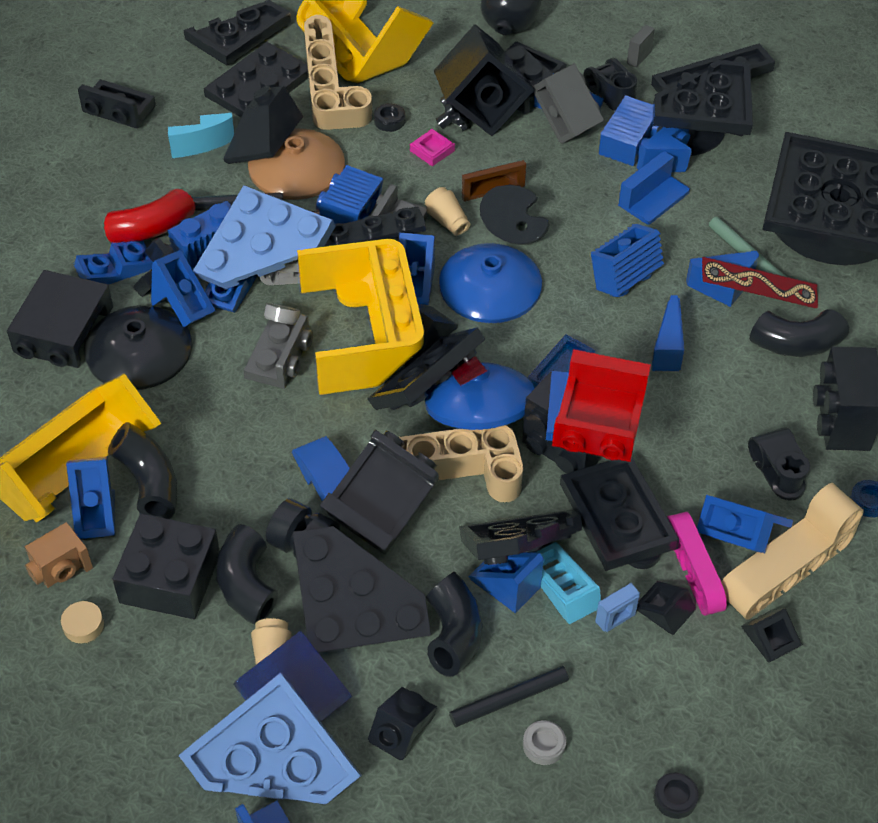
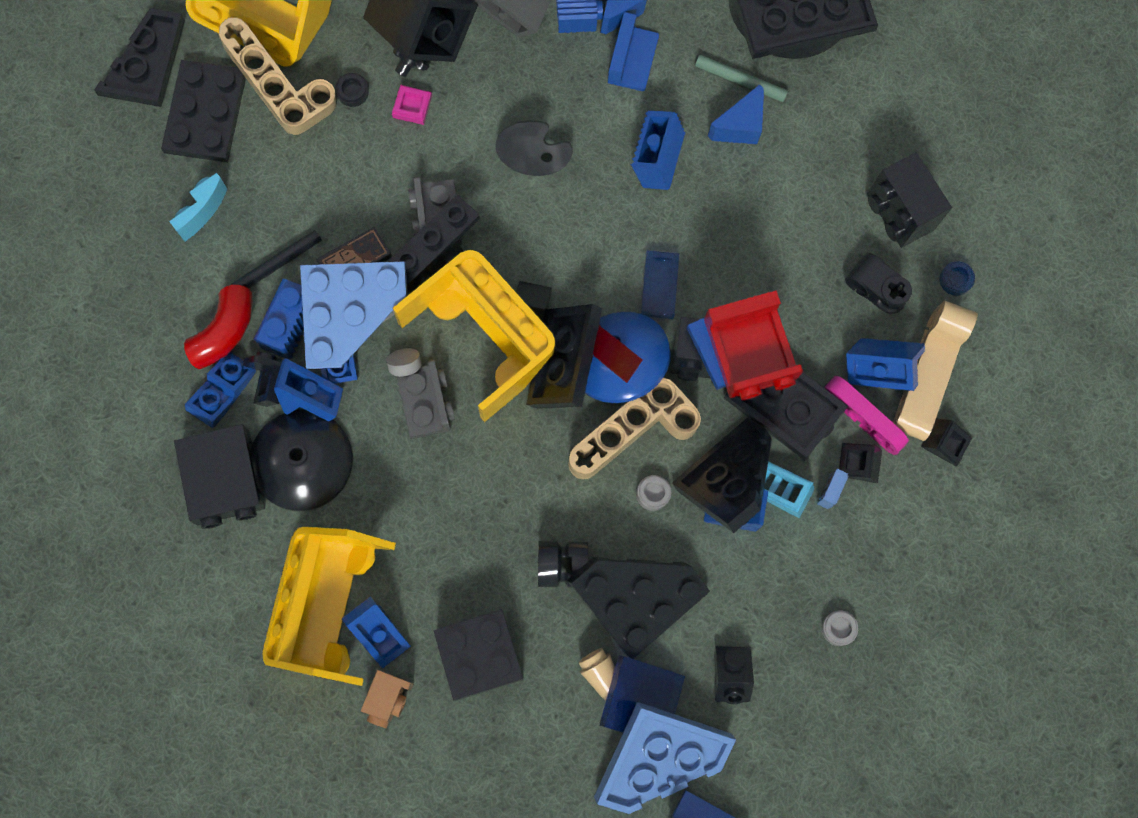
camera: 35 degrees left, 25 degrees up
(82, 622) = (441, 736): tan tile -> none
(116, 103) = (93, 211): black bracket -> none
(150, 468) = (405, 578): black cylinder -> none
(238, 575) = (537, 630): black cylinder -> none
(264, 125) = (258, 174): black slope -> none
(300, 166) = (305, 205): medium nougat dish -> none
(321, 465) = (544, 496): blue slope -> none
(350, 196) = (386, 211): blue brick -> none
(381, 491) = (603, 498): black panel -> none
(421, 262) = (488, 243): blue slope -> none
(435, 526) = (653, 492): none -> light grey tile
(446, 209) = (473, 174): tan cone -> none
(460, 626) = (728, 571): black cylinder -> none
(480, 182) = (488, 114): reddish brown slope -> none
(490, 283) = (547, 246): blue dish -> none
(508, 696) = (793, 605): black bar -> none
(670, 343) = (734, 212): blue slope -> none
(675, 795) = (951, 614): black tile -> none
(759, 282) = (776, 116): sticker -> none
(797, 337) = (834, 153): black cylinder -> none

